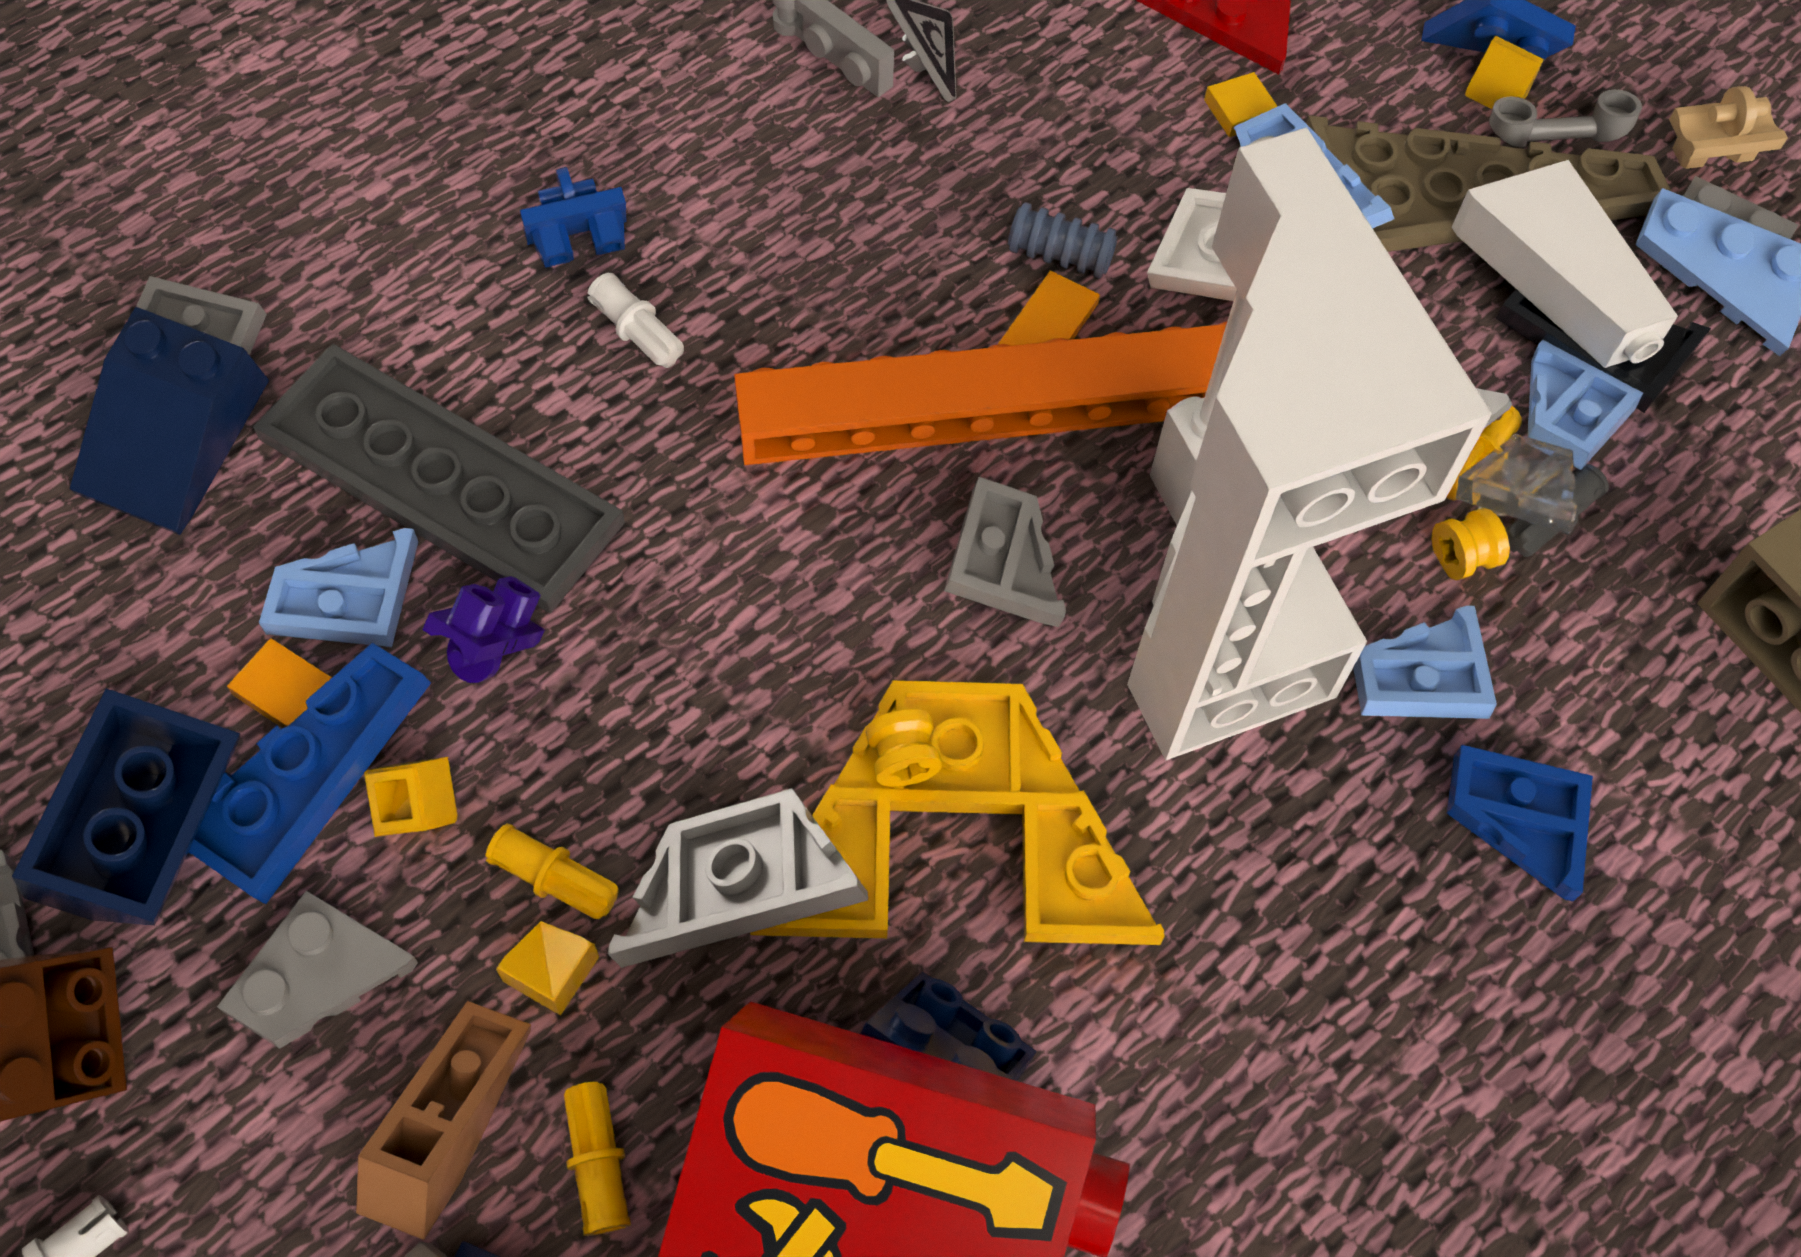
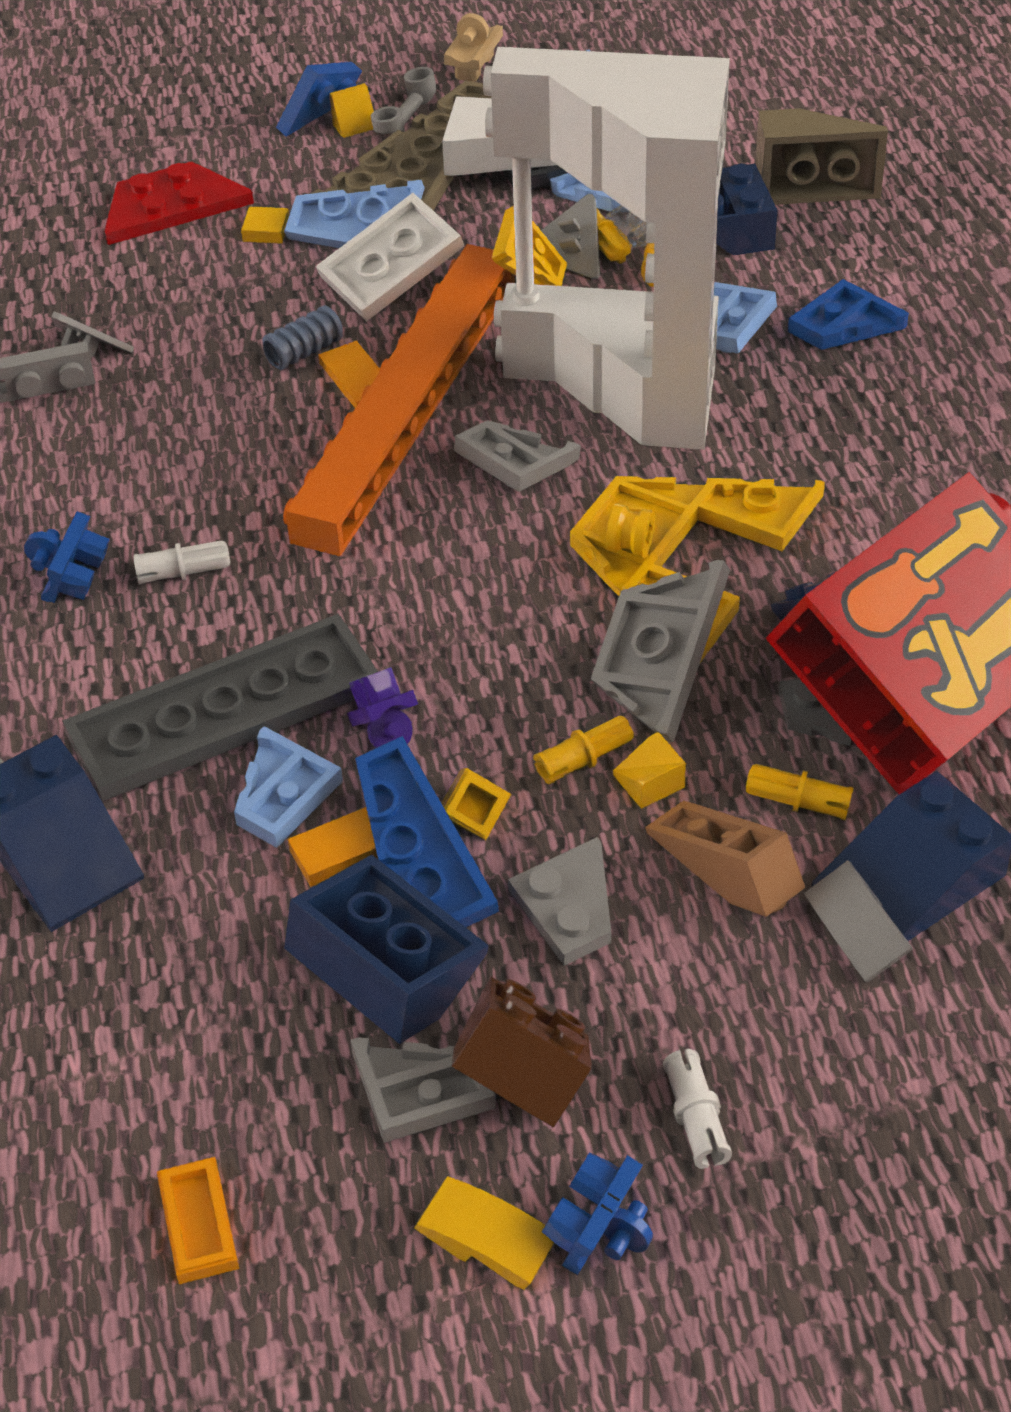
camera: 55 degrees left, 15 degrees down
(1626, 566) = (745, 211): none -> dark blue slope

